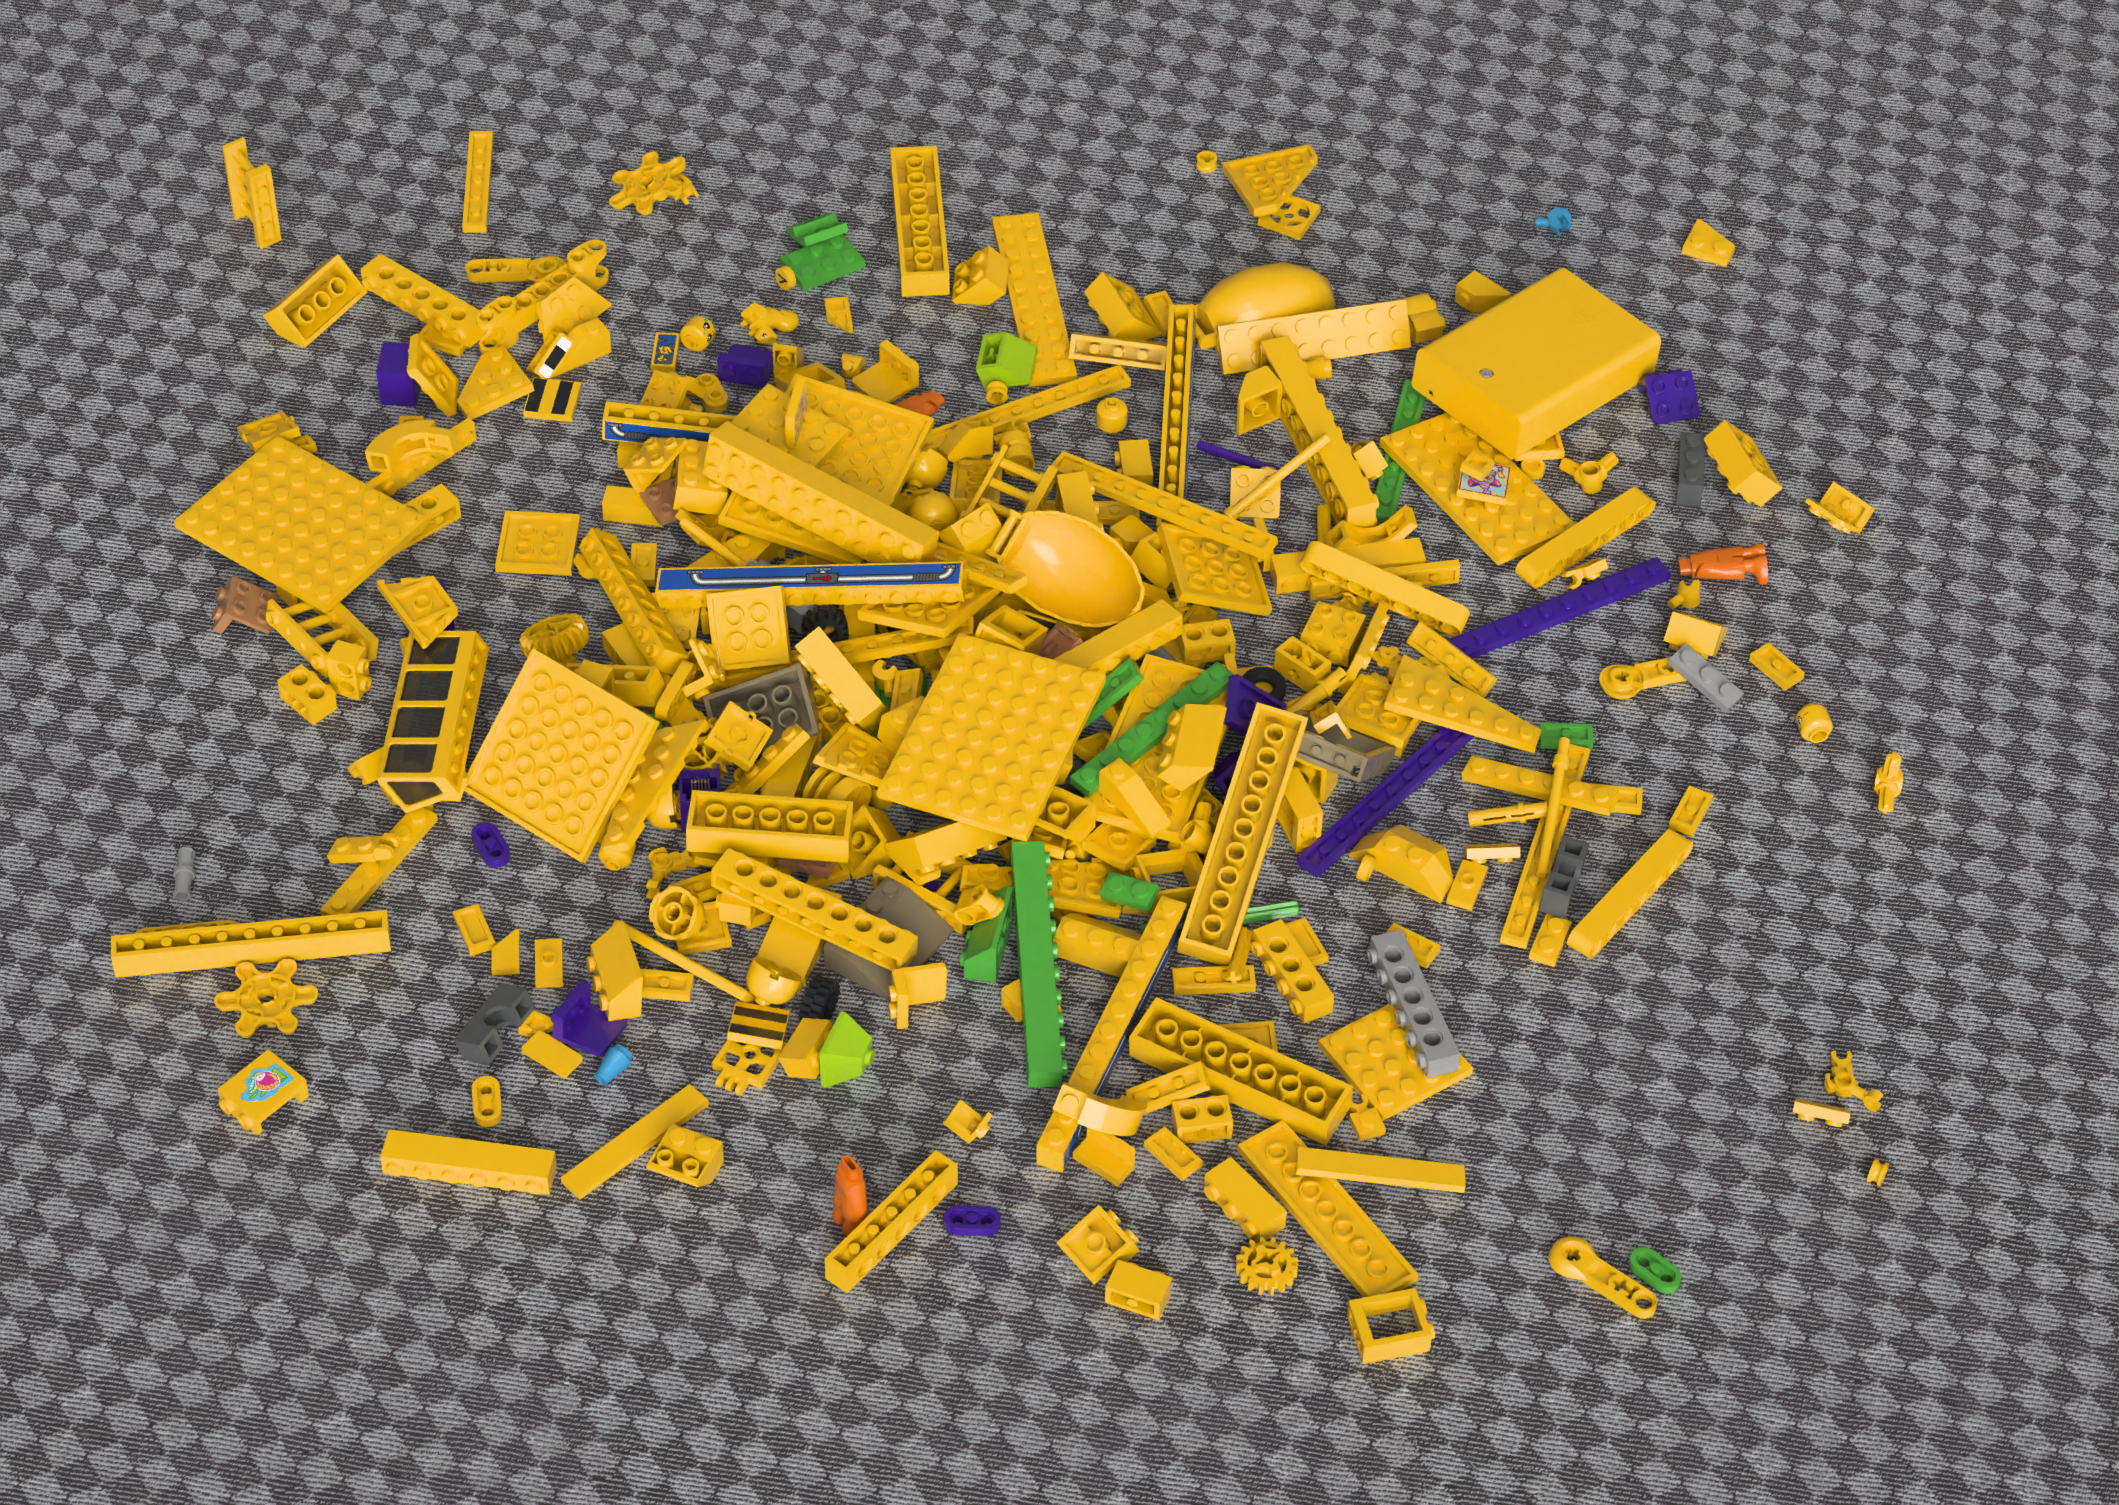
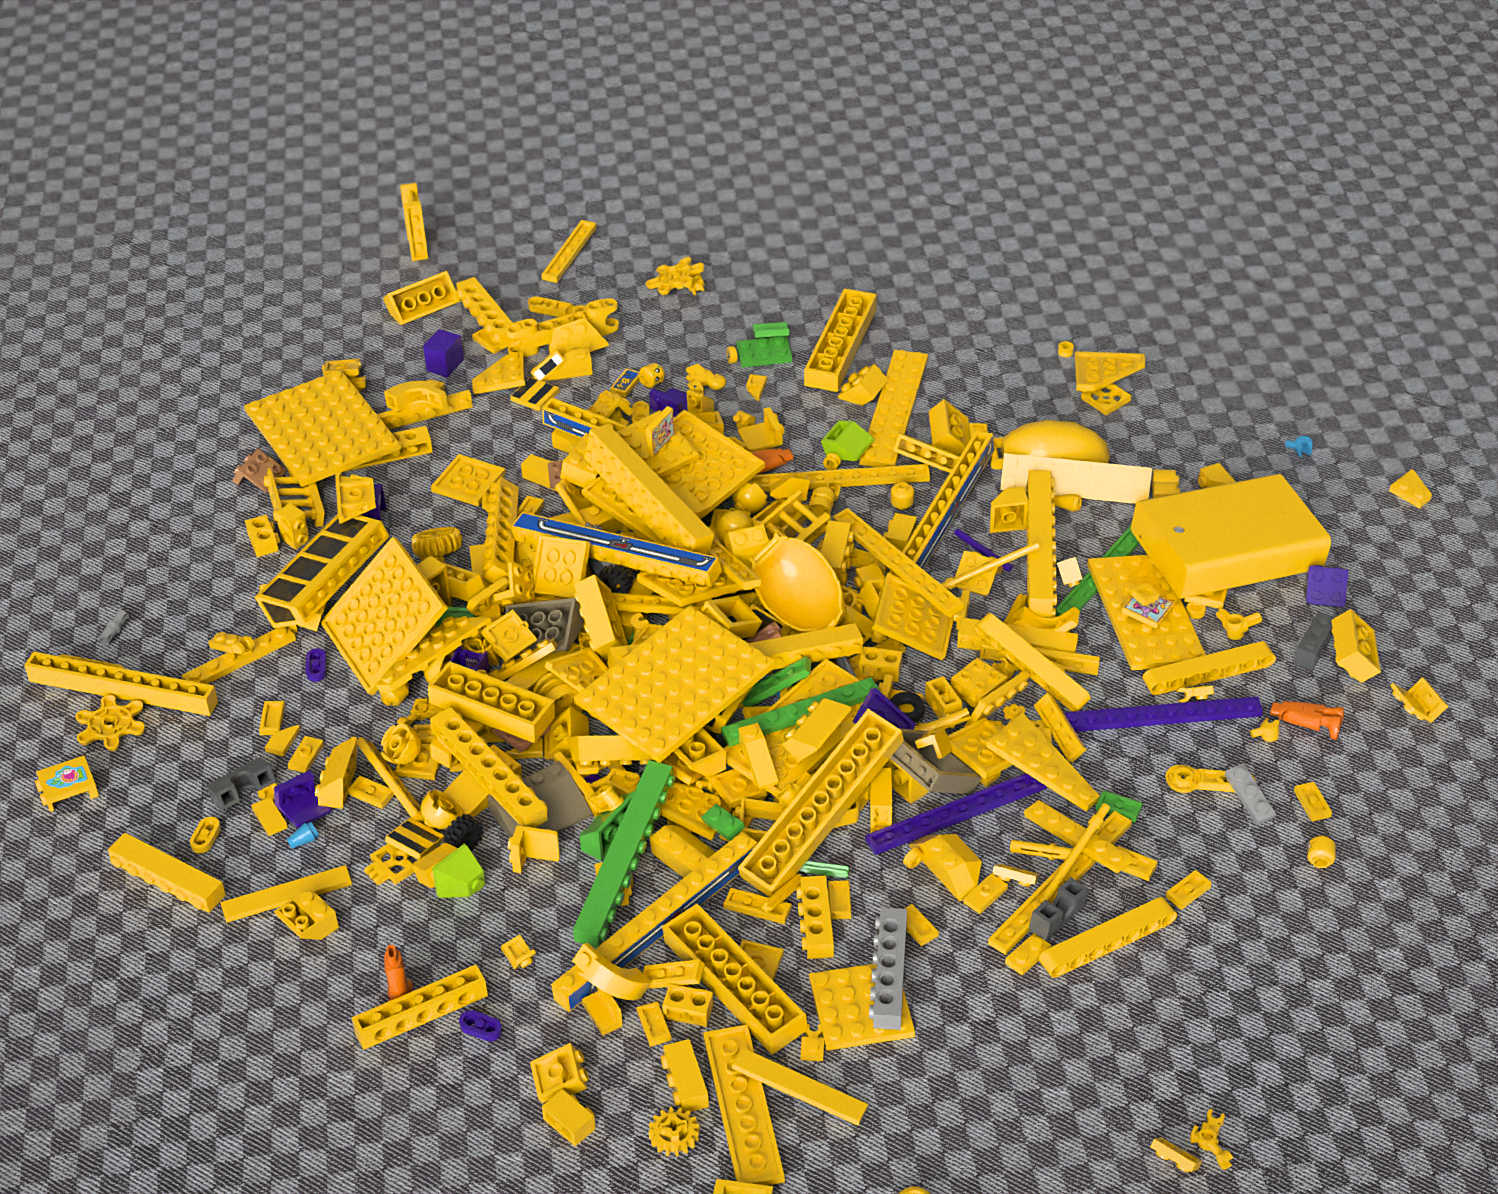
camera: 25 degrees right, 5 degrees down
(432, 375) = (459, 357): yellow plate -> none
(652, 460) = (561, 445): yellow bracket -> none
(1699, 634) = (1258, 759): yellow slope -> none
(1888, 782) = (1359, 914): yellow axle -> none

